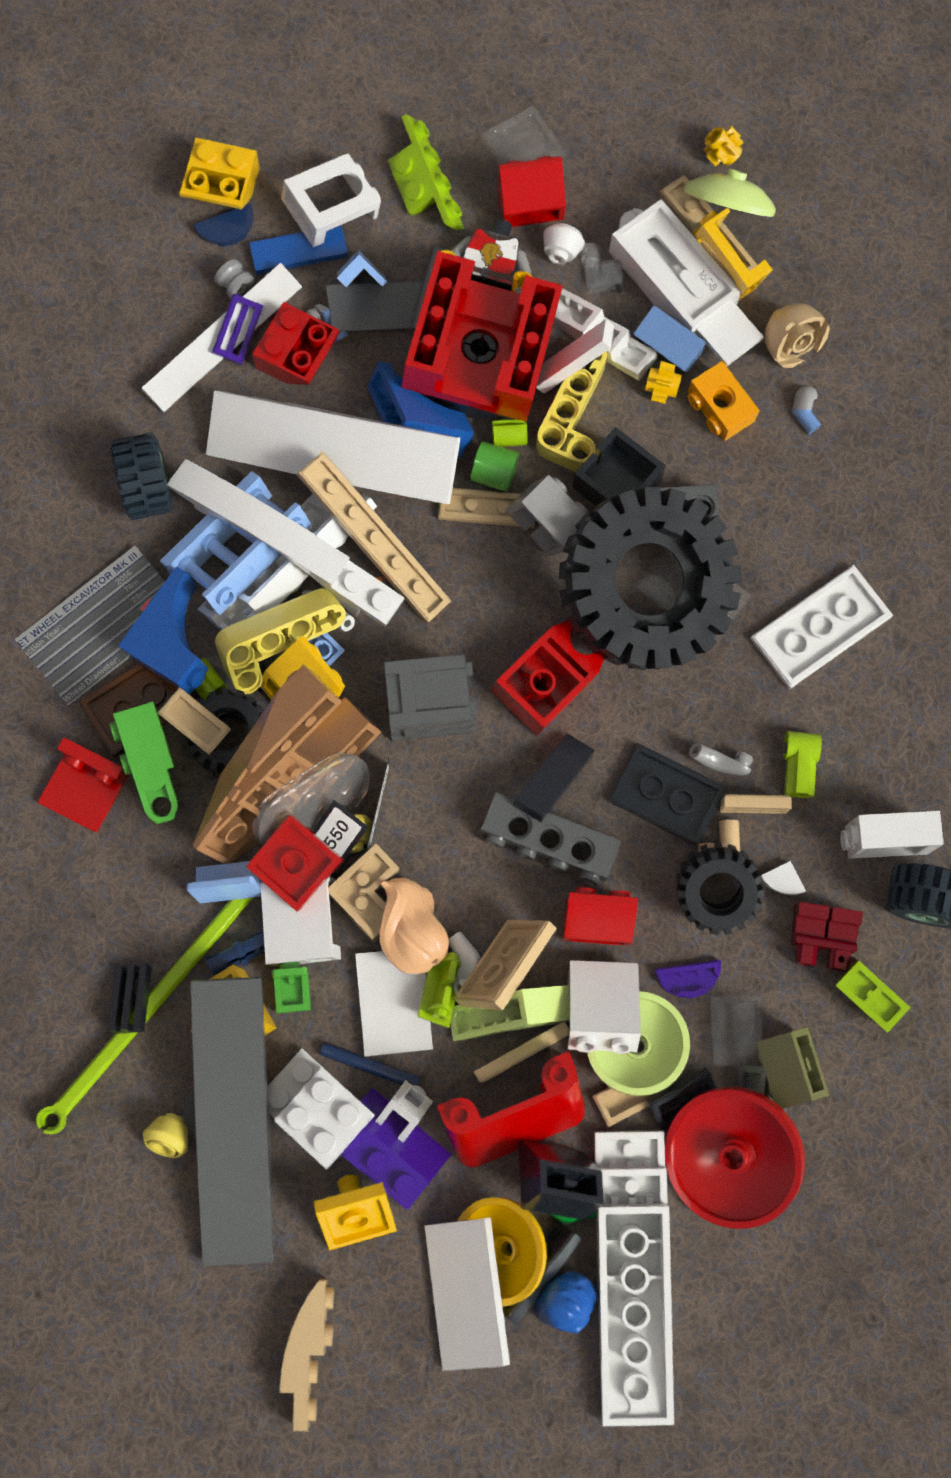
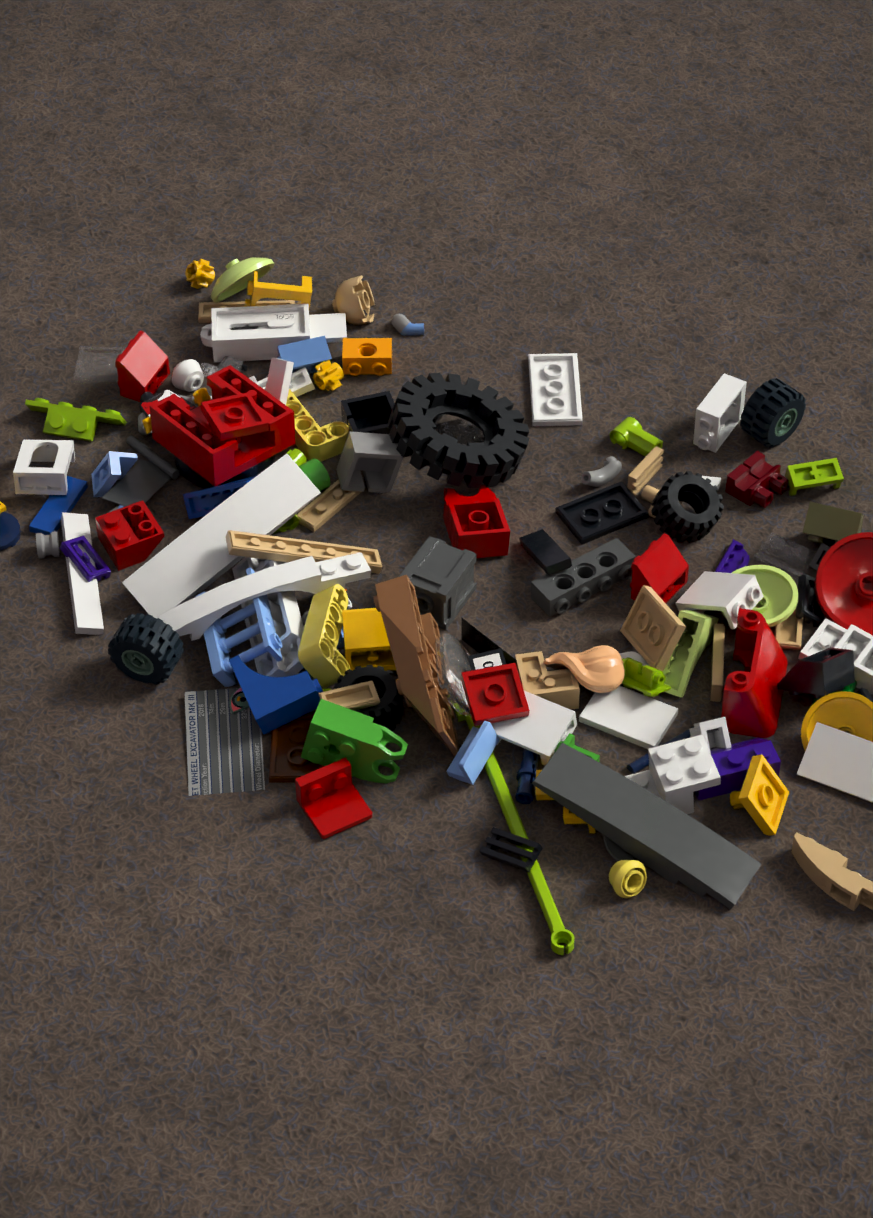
camera: 50 degrees left, 30 degrees down
(473, 348) = (234, 416): none -> red tile

